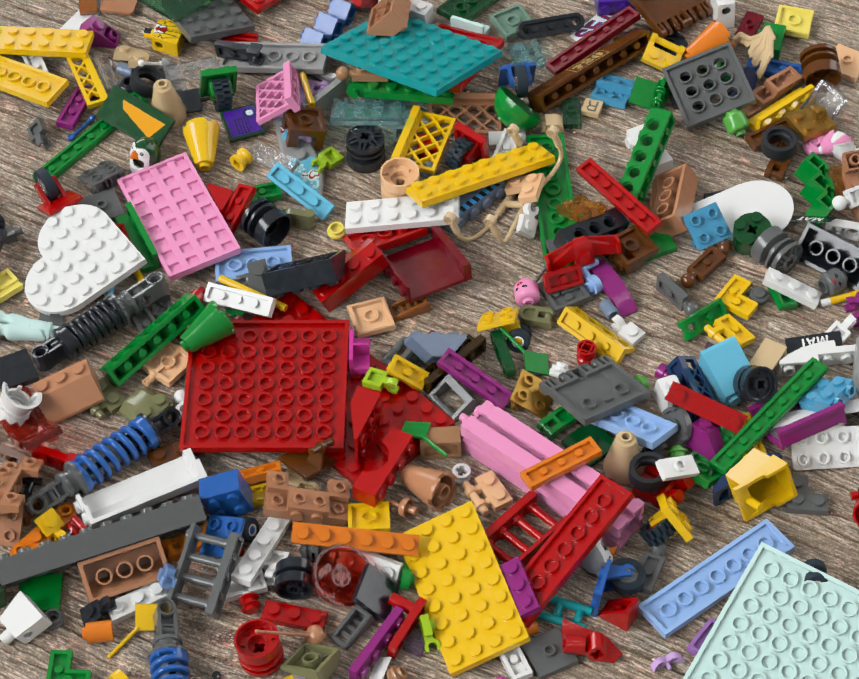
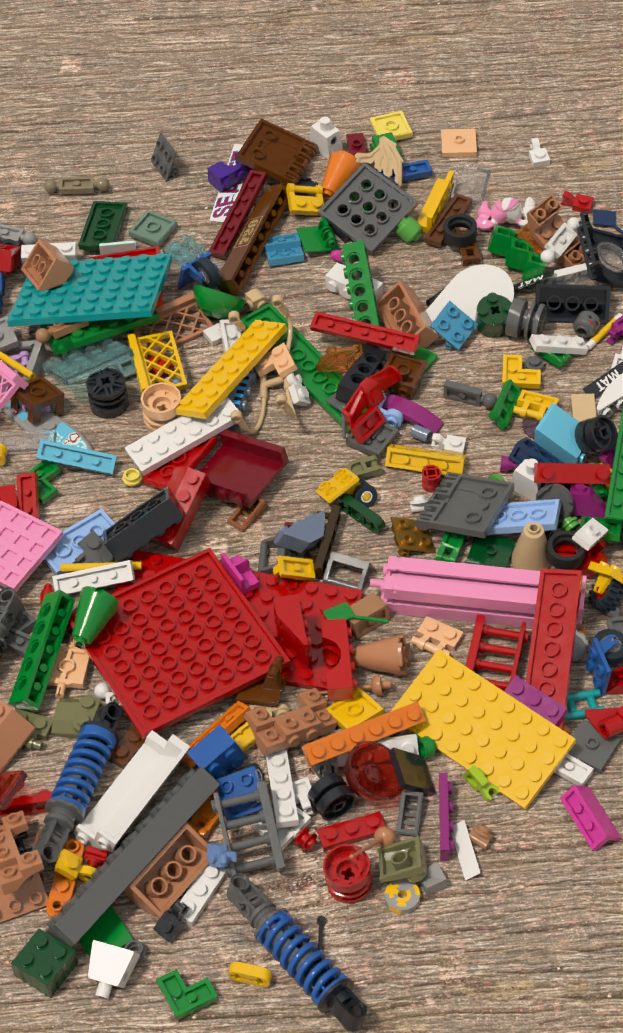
camera: 30 degrees left, 0 degrees up
(98, 631) = (187, 939): orange brick -> none
(143, 622) = (220, 907): yellow piece -> none
(265, 223) = (67, 499): black wheel -> none
(302, 219) = (91, 482): olive plate -> none
(328, 158) = (77, 418): lime plate -> none
(371, 317) = (221, 536): light nougat plate -> none
(377, 379) = (273, 586): lime plate -> none
(413, 610) = (455, 770): red piece -> none
(414, 644) = (474, 798): tile -> none
(461, 467) = (402, 627): white bush -> none
(467, 148) = (199, 350): plate -> none
(474, 378) = (356, 545): magenta plate -> none
(526, 292) = (342, 451): bright pink head -> none
(534, 362) = (392, 506): green piece -> none
(550, 26) = (190, 217): black plate -> none
(560, 463) = (496, 578): orange plate -> none
(571, 113) = (260, 280): clear green plate -> none
(592, 108) = (276, 271): tan tile -> none
(706, 264) = (472, 357): reddish brown plate -> none
(772, 90) = (420, 185): nougat slope -> none
(811, 122) = (472, 201): pearl gold hinge -> none
(820, 63) = (445, 152): reddish brown wheel -> none

